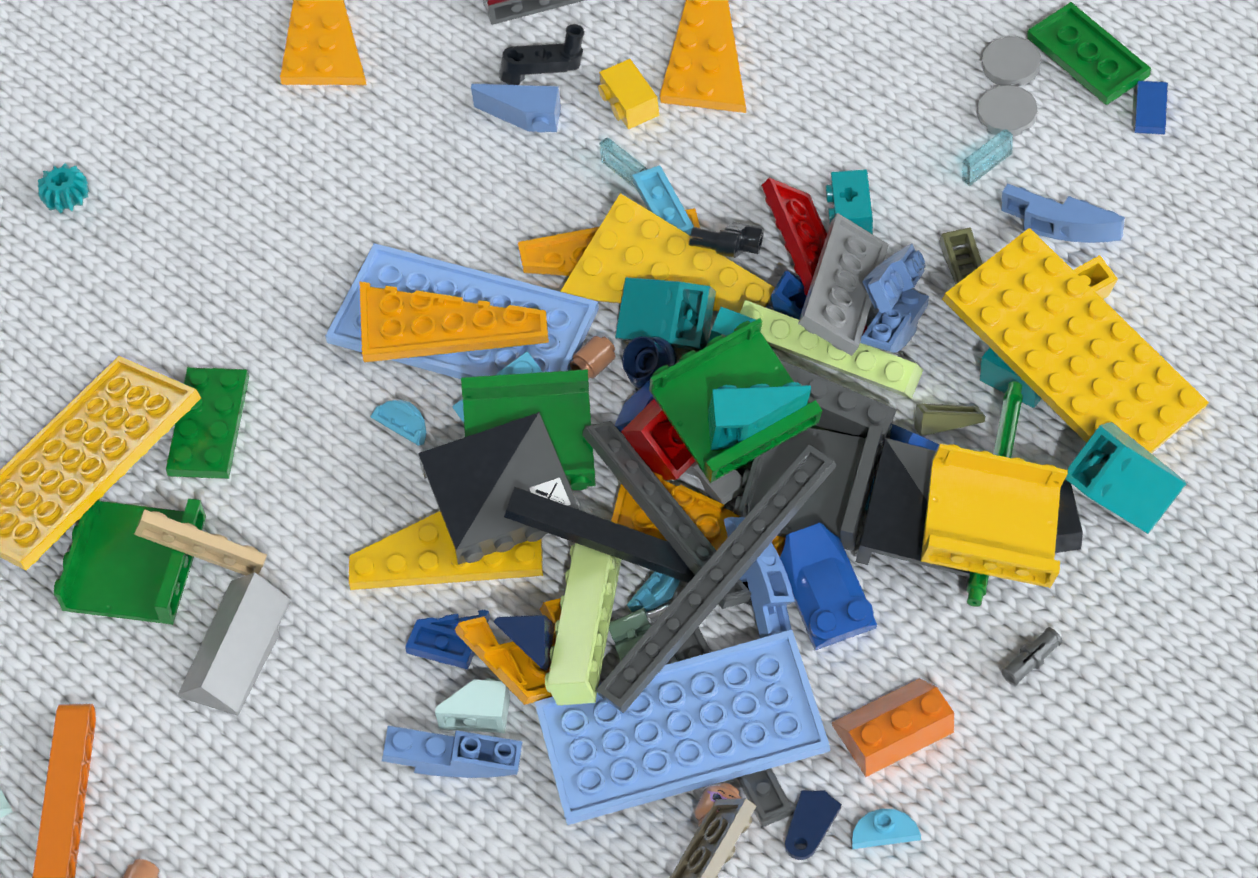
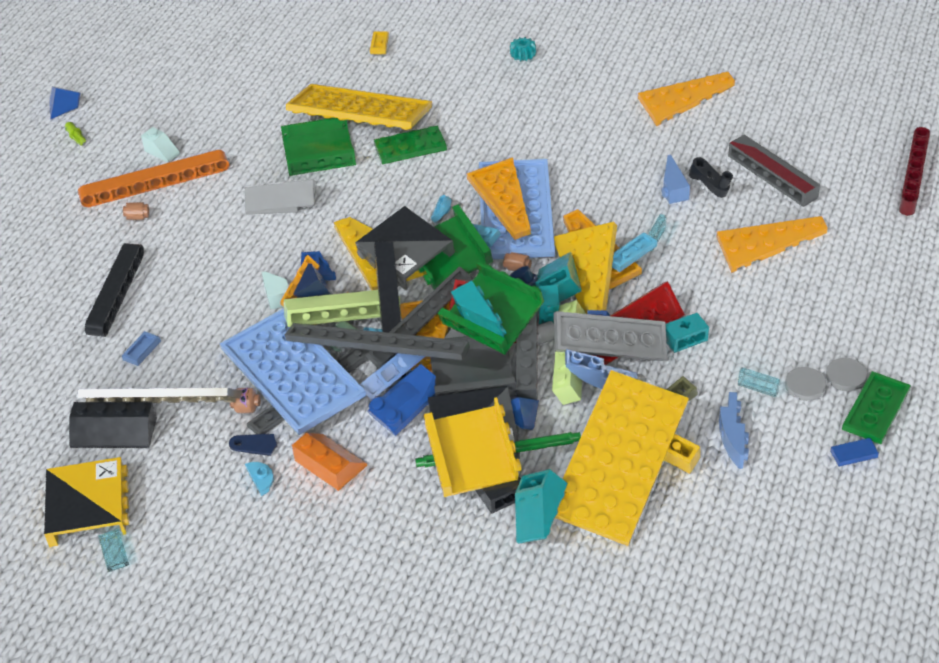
camera: 65 degrees right, 10 degrees down
(200, 544) = (325, 152): tan plate -> none
(452, 756) = (244, 288): medium blue slope -> none
(628, 94) = (708, 218): yellow brick -> none
(731, 241) = (618, 283): black beam -> none
(894, 277) = (629, 358): medium blue slope -> none
(941, 417) = (550, 417): olive slope -> none
(1034, 659) = (399, 507): dark grey pin -> none

